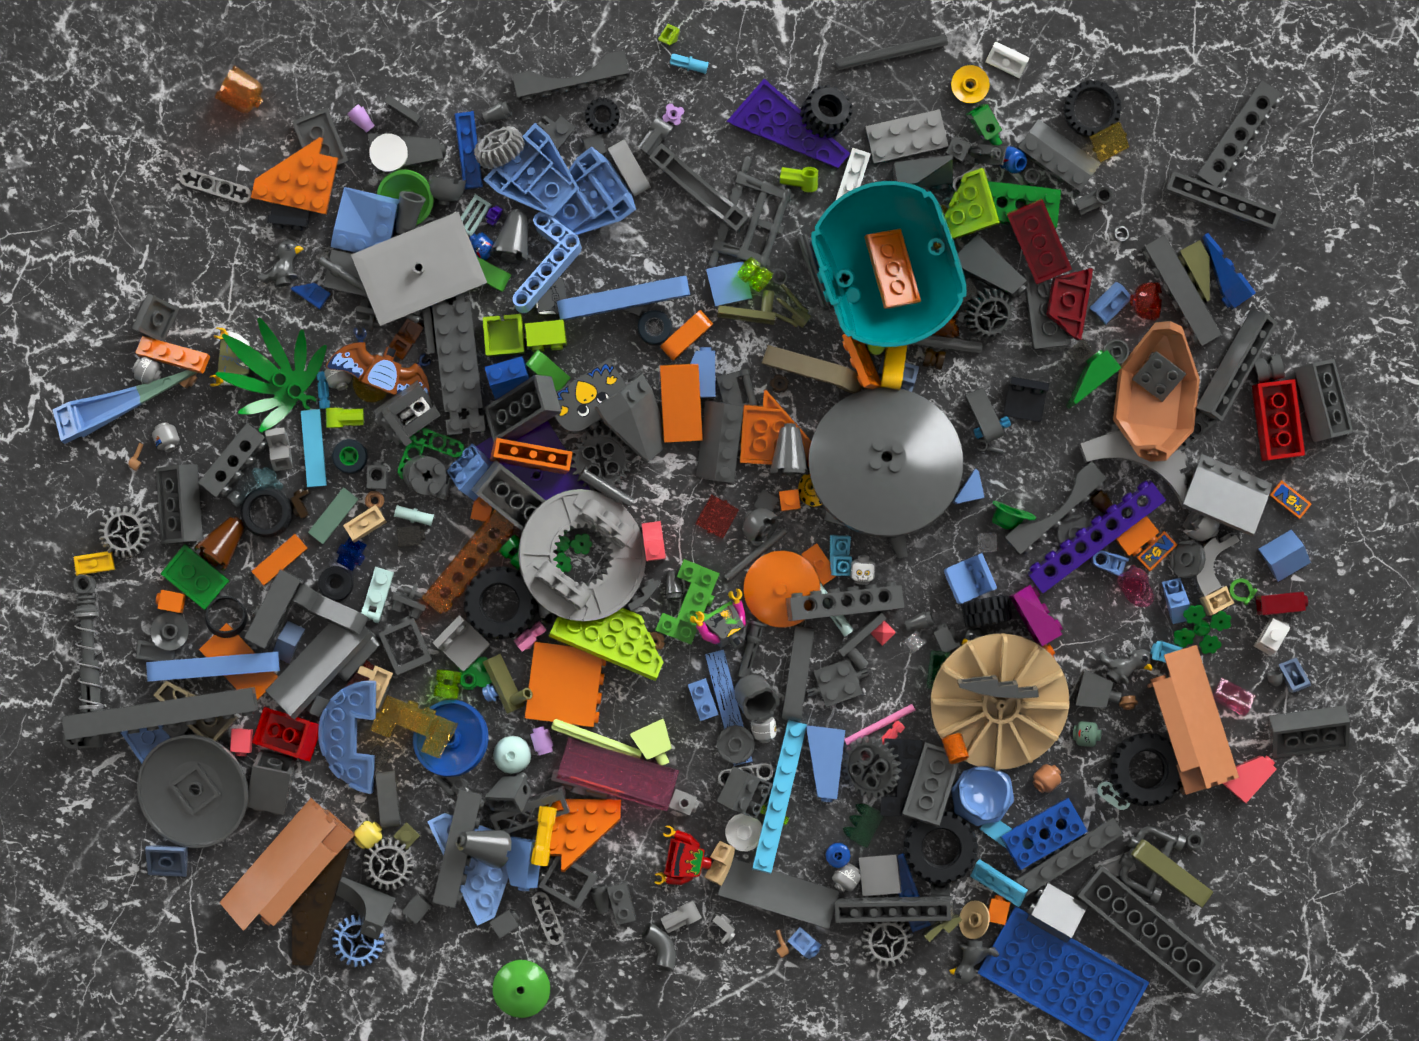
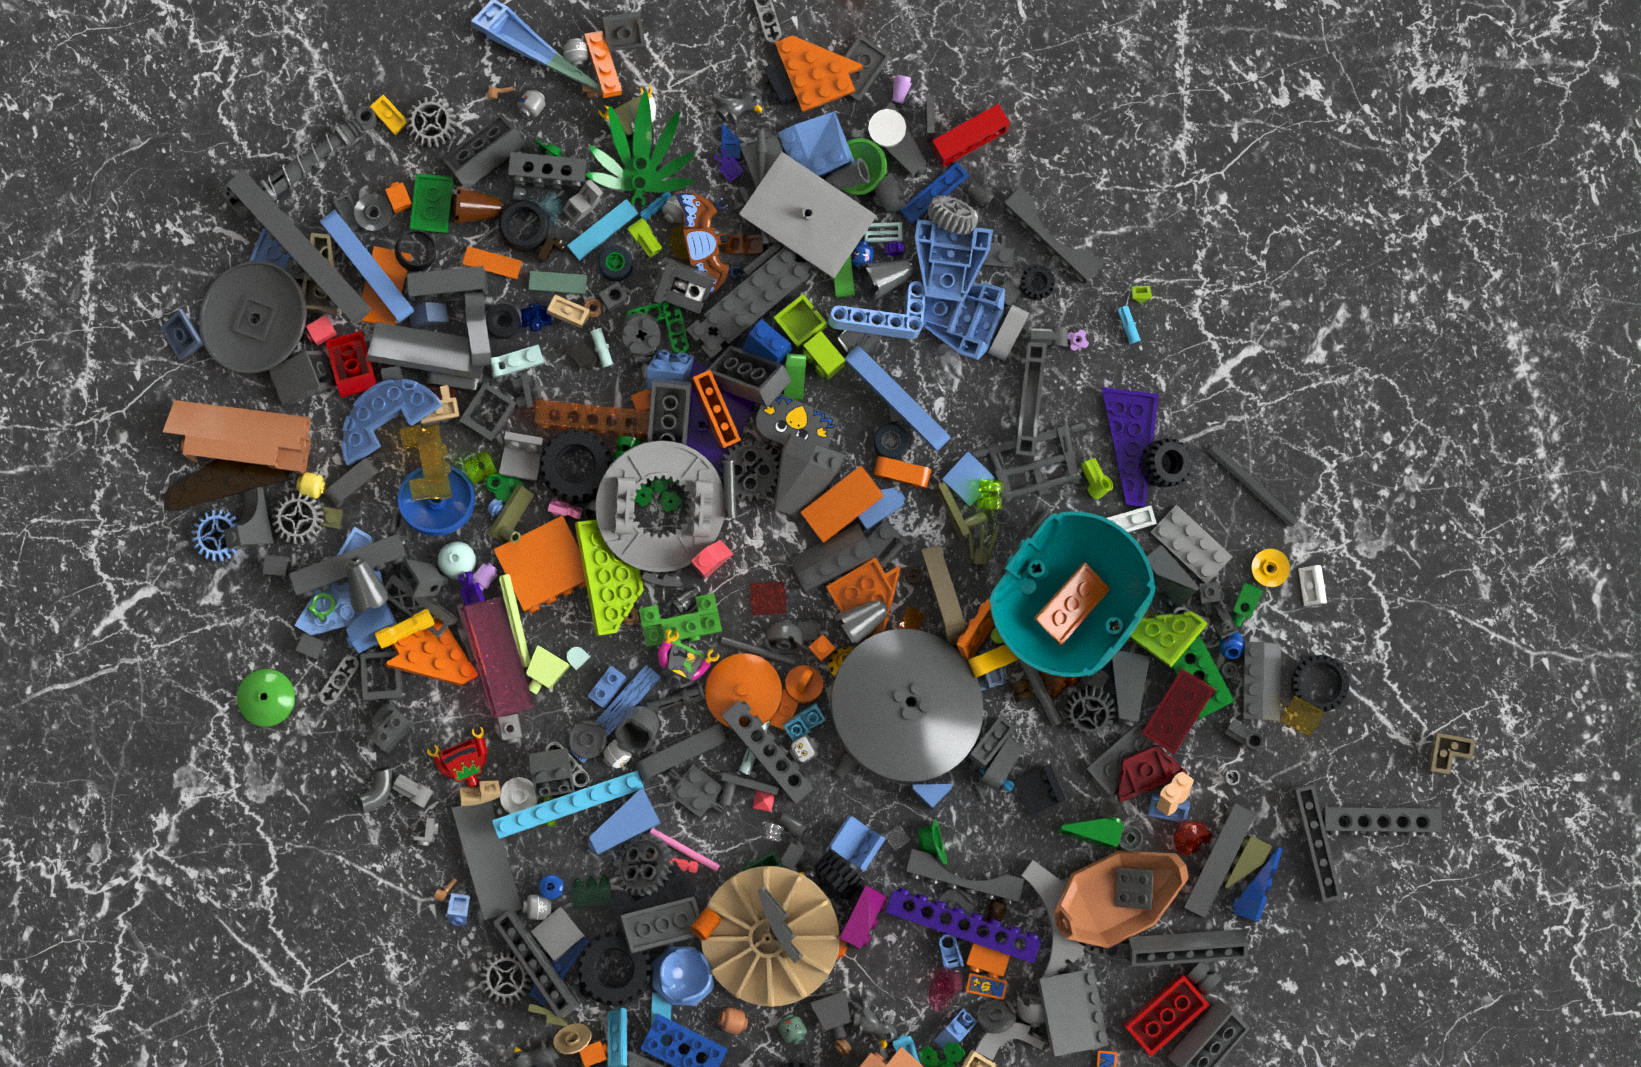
camera: 55 degrees right, 5 degrees down
(217, 447) = (550, 149): none -> green plate
(332, 306) = (730, 166): none -> dark purple plate
(441, 87) = (970, 135): none -> red brick
(473, 901) = (320, 616): none -> bright green piece
(548, 760) = (471, 592): none -> dark purple plate
(660, 708) = (577, 657): none -> light aqua tile
(808, 534) = (804, 684): none -> orange tile
(814, 410) = (911, 619): none -> clear orange slope
(961, 414) = (990, 744): none -> dark grey piece
(1104, 290) = (1174, 793): none -> light nougat brick
(1215, 43) = (1446, 747): none -> dark tan brick

